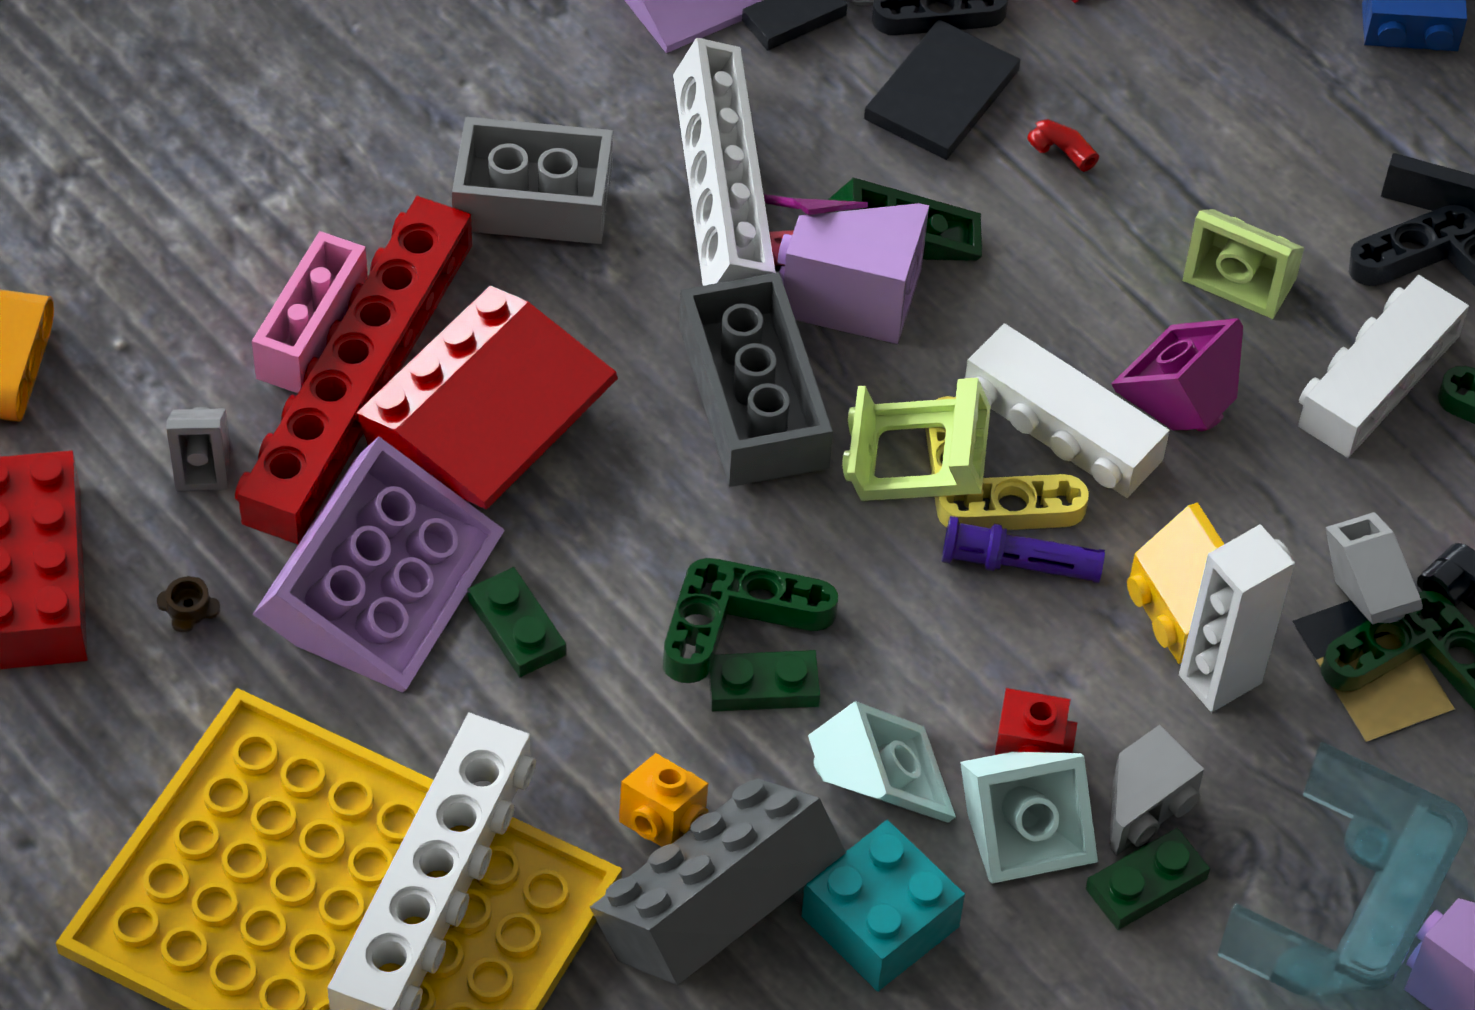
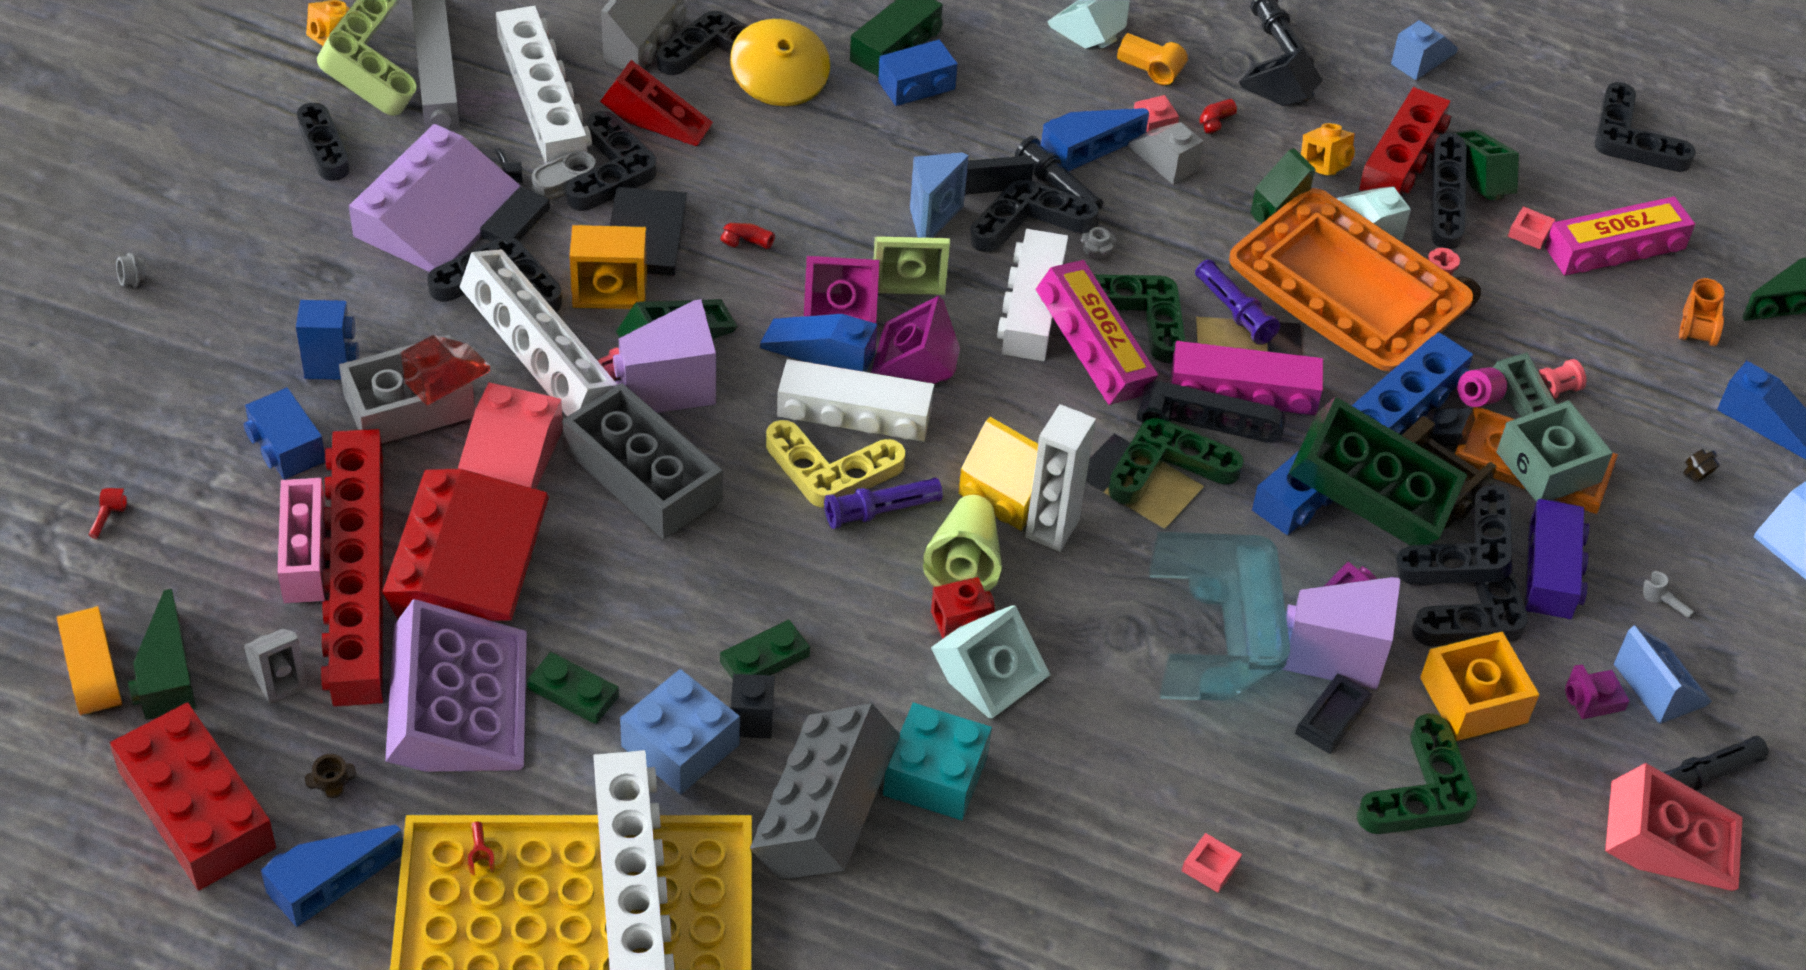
camera: 30 degrees left, 5 degrees down
(84, 391) = (162, 664): none -> dark green slope
(116, 711) = (327, 869): none -> blue slope
(138, 177) = (110, 500): none -> red hand
(288, 767) = (479, 850): none -> red hand
(369, 175) = (284, 433): none -> blue brick
(473, 76) = (325, 338): none -> blue brick
(574, 167) = (440, 367): none -> clear red slope
(598, 726) = (681, 730): none -> medium blue brick
(619, 288) = (512, 435): none -> coral slope
(662, 800) = (754, 759): light orange brick -> none
(703, 736) = (754, 703): none -> black brick
(731, 596) = (766, 592): dark green beam -> none
(758, 70) = (446, 279): none -> black beam
(813, 206) = (620, 330): magenta piece -> none
(857, 119) = (608, 266): none -> light orange brick
(881, 760) = (876, 670): light aqua slope -> none
(964, 448) = (806, 443): yellowish green window -> none
(1076, 320) = (824, 340): none -> blue slope
(1083, 652) = (965, 545): none -> yellowish green cone
(1128, 264) = (841, 287): none -> dark pink slope
(1147, 878) = (1087, 671): dark green plate -> none
(1149, 786) = (1055, 611): light grey slope -> none
(1334, 181) = (937, 191): none -> medium blue slope
(1372, 569) = (1117, 417): light grey slope -> none
(1422, 446) = (1096, 331): none -> dark pink brick

